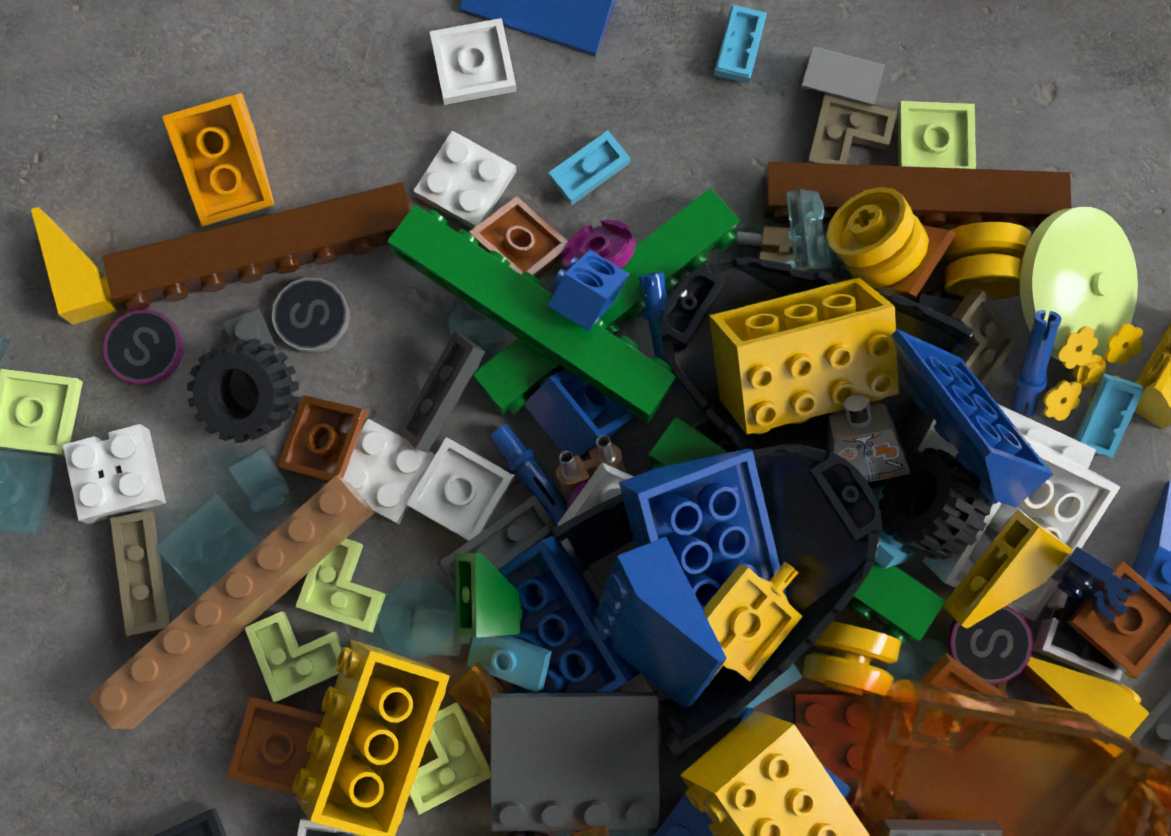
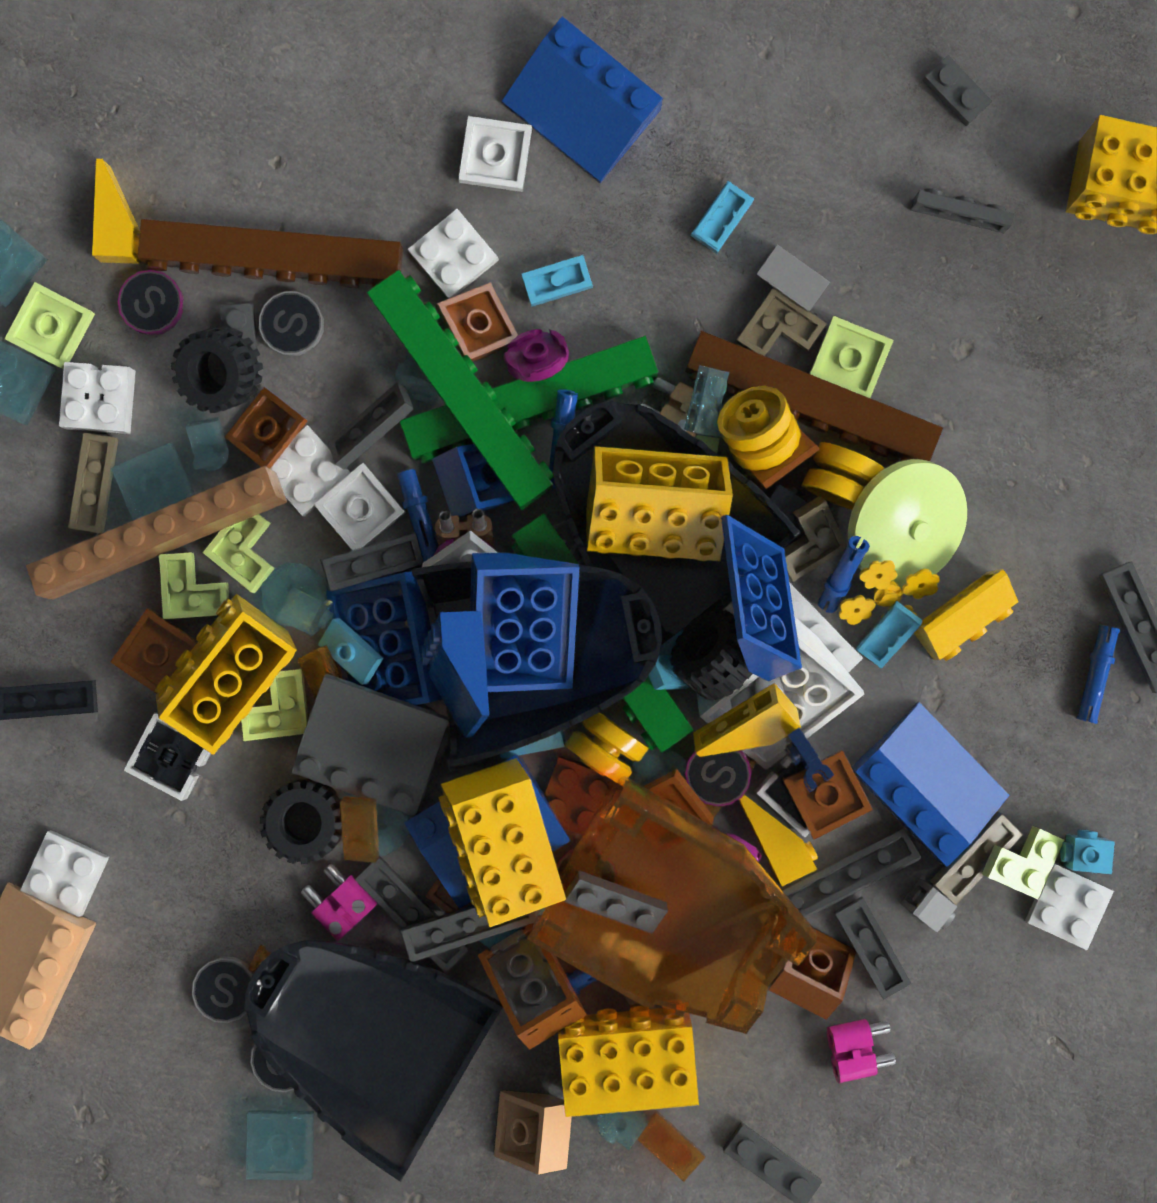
camera: 25 degrees right, 10 degrees up
(220, 158) = (261, 165): light orange slope -> none
(484, 599) = (344, 602): green slope -> none
(587, 289) = (509, 389): blue brick -> none
(751, 617) = (530, 691): yellow plate -> none
(867, 439) = (681, 589): light grey torso -> none

